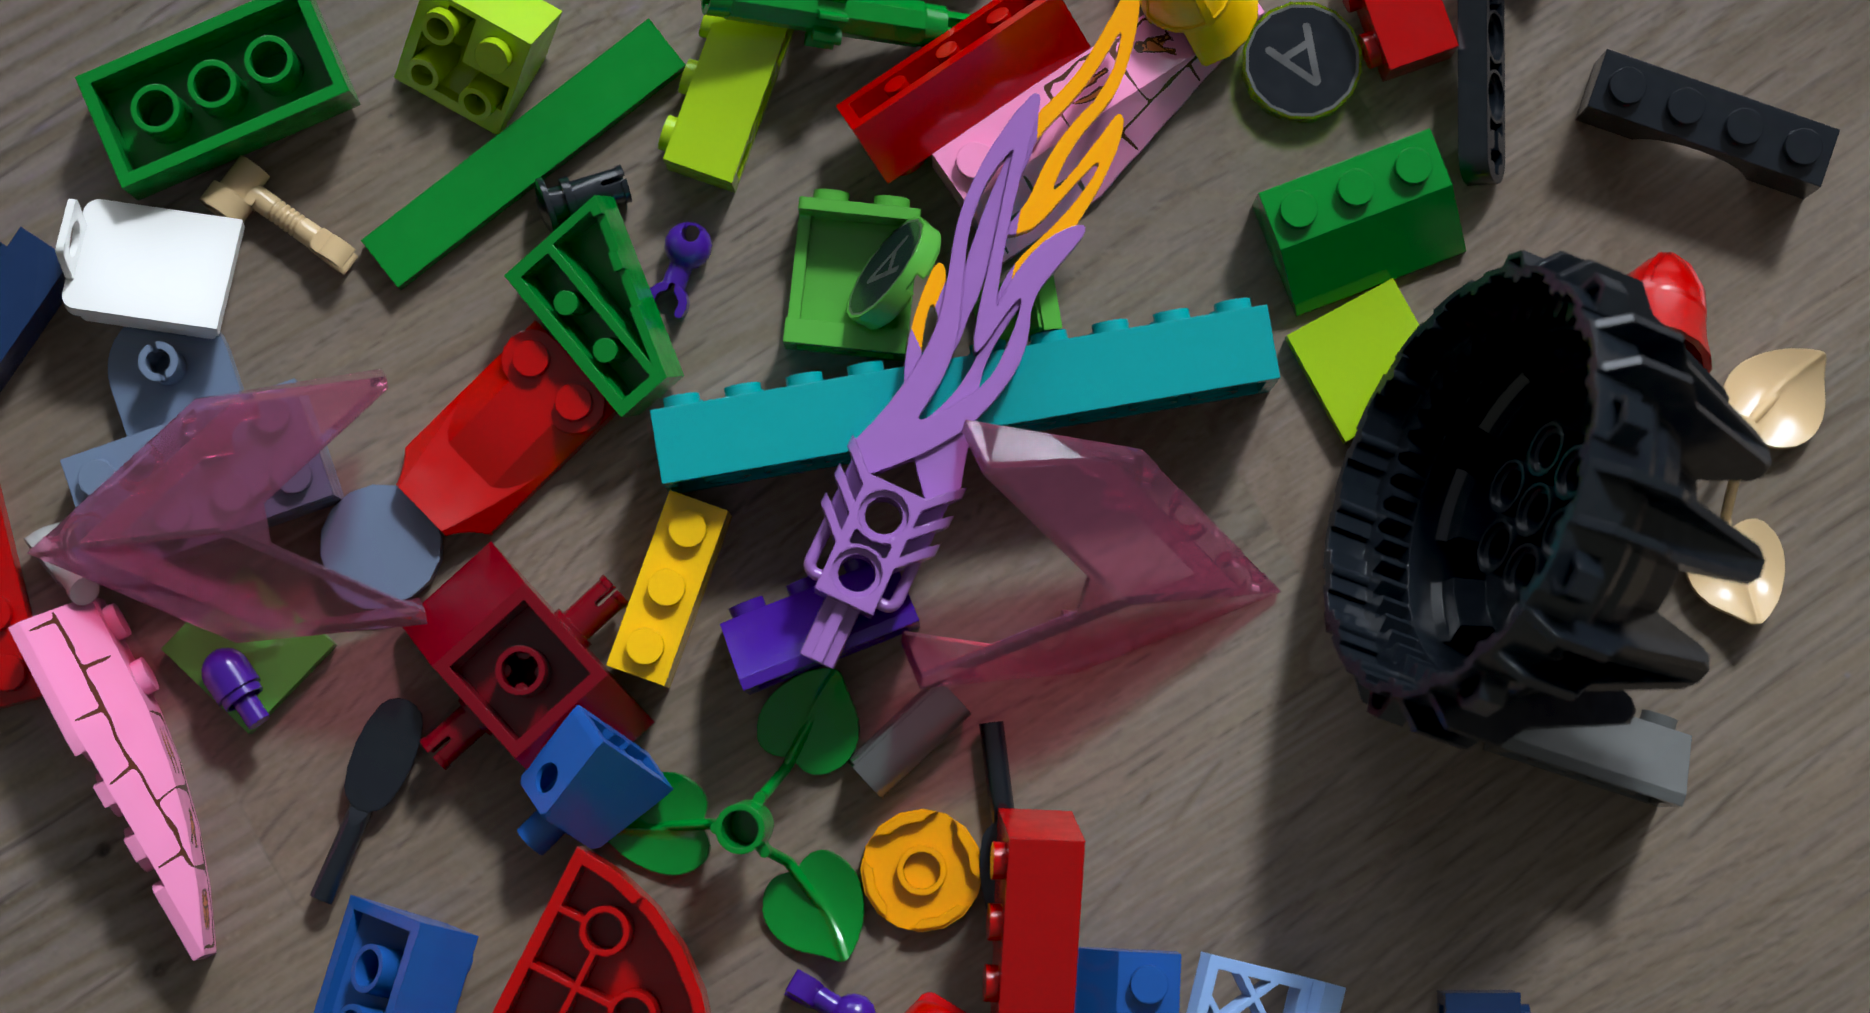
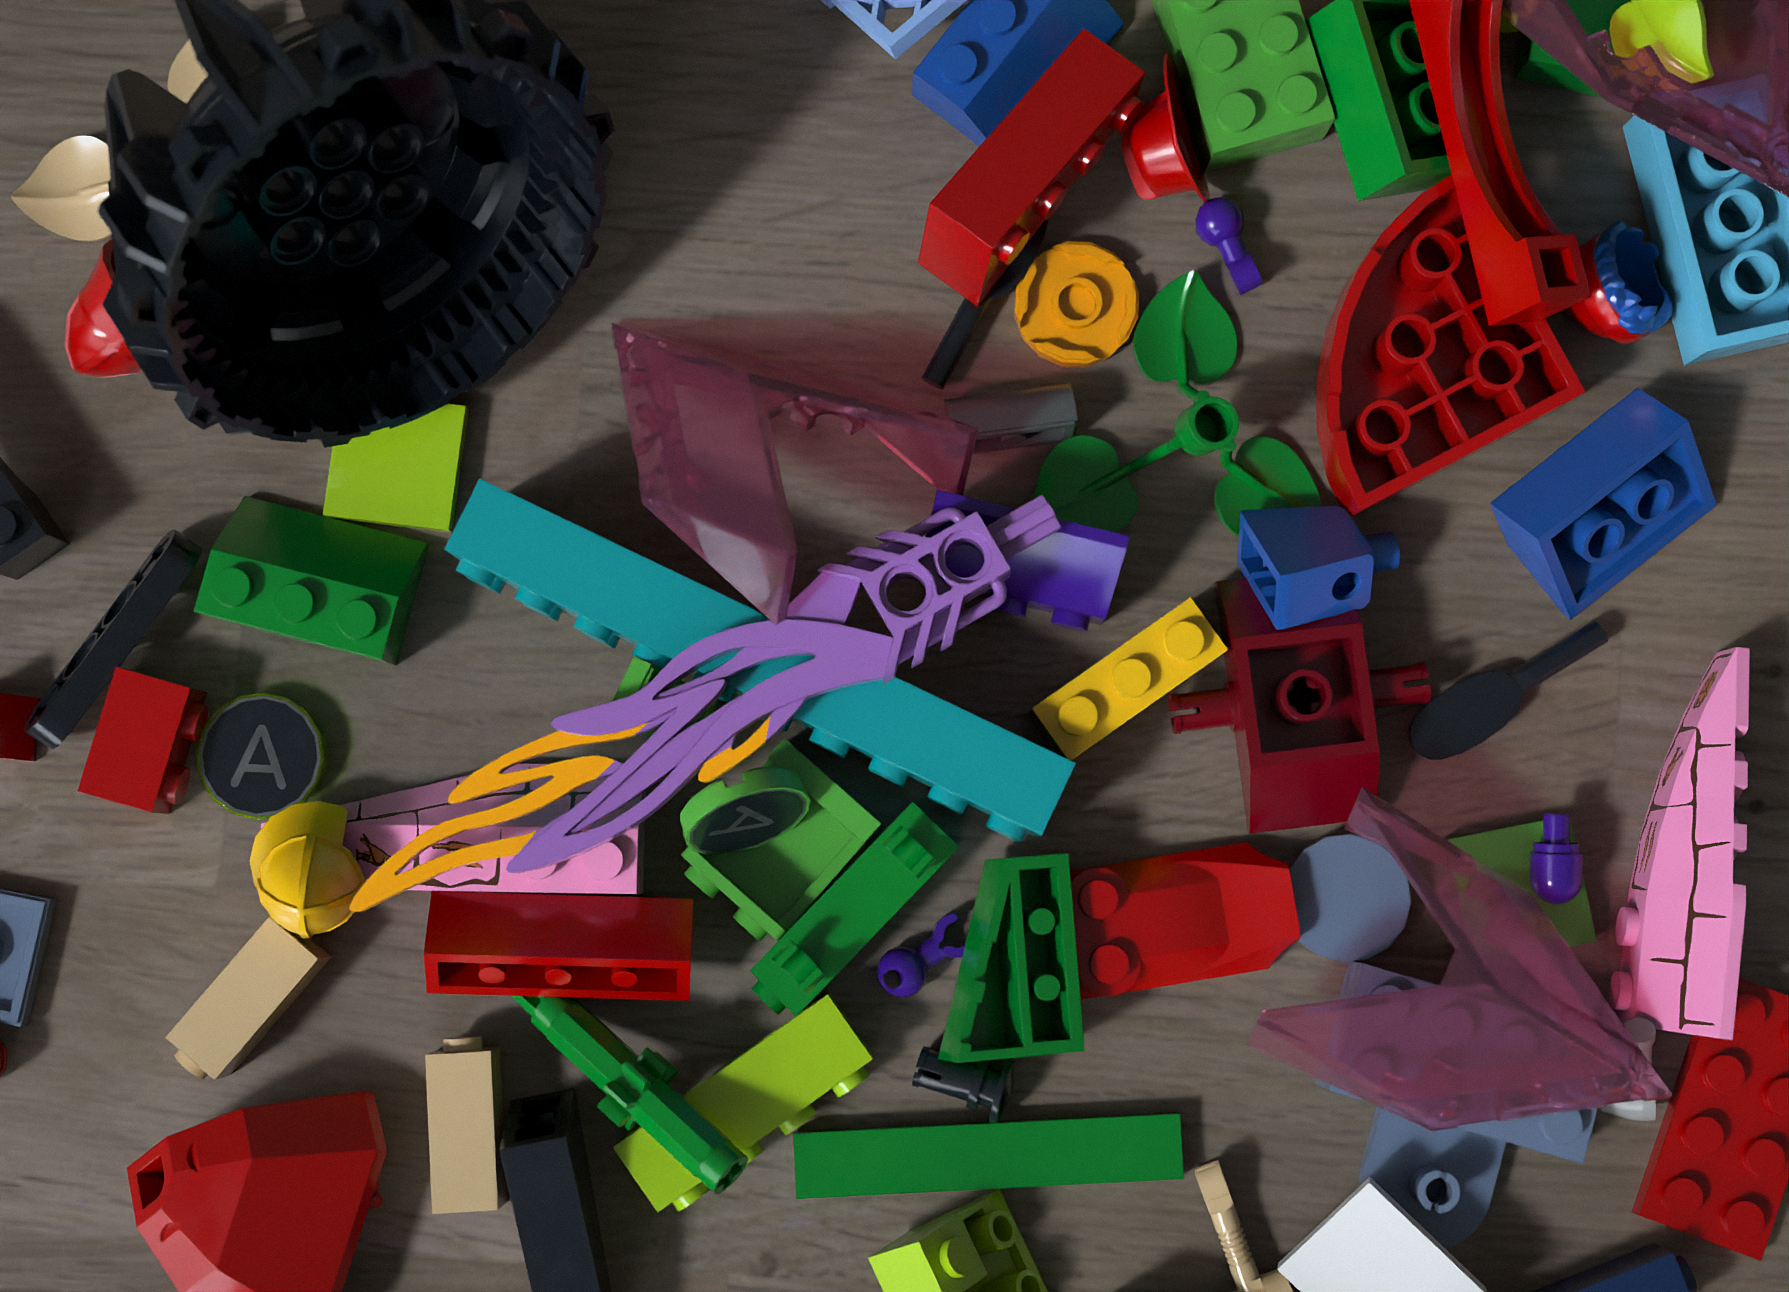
camera: 150 degrees left, 0 degrees up
(758, 263) = (851, 911): none -> green brick

